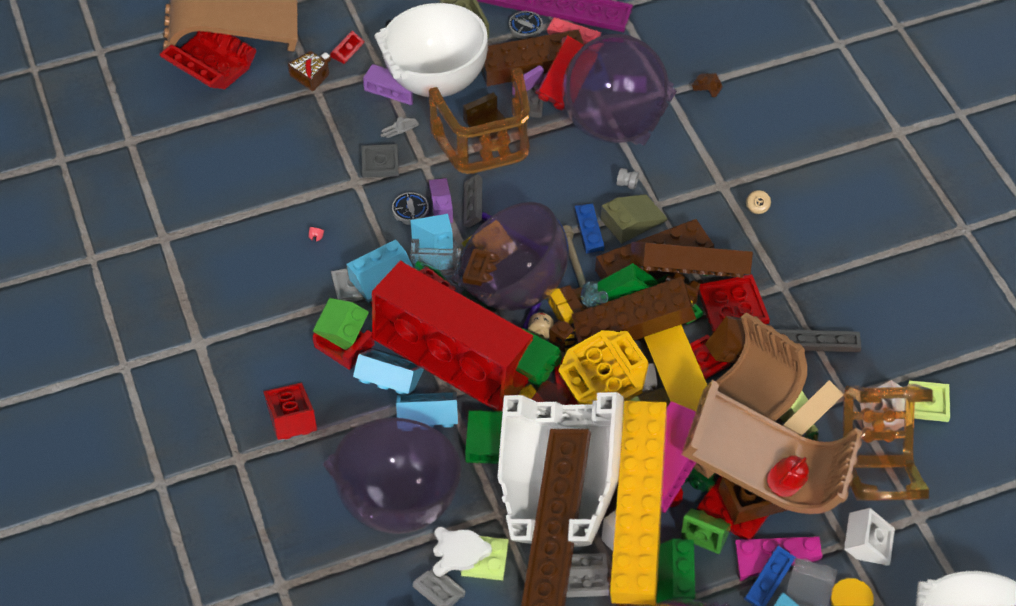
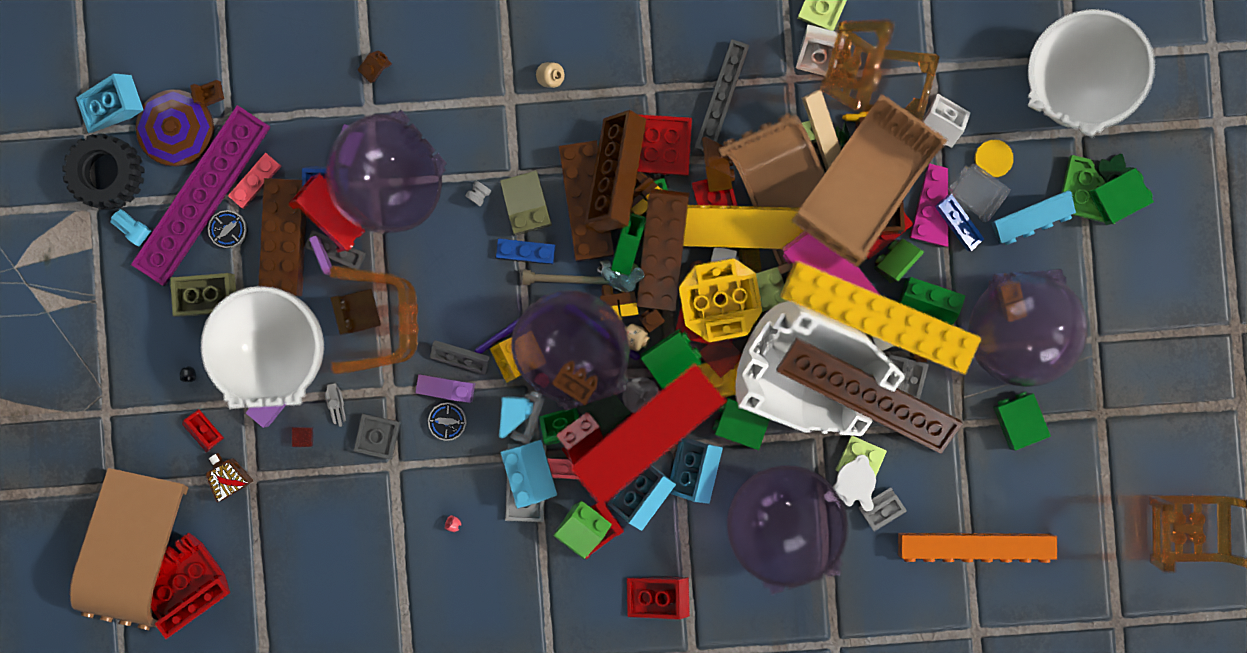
camera: 75 degrees left, 35 degrees up
(363, 110) = (302, 436): none -> clear red plate
(788, 476) = (887, 173): red piece -> none

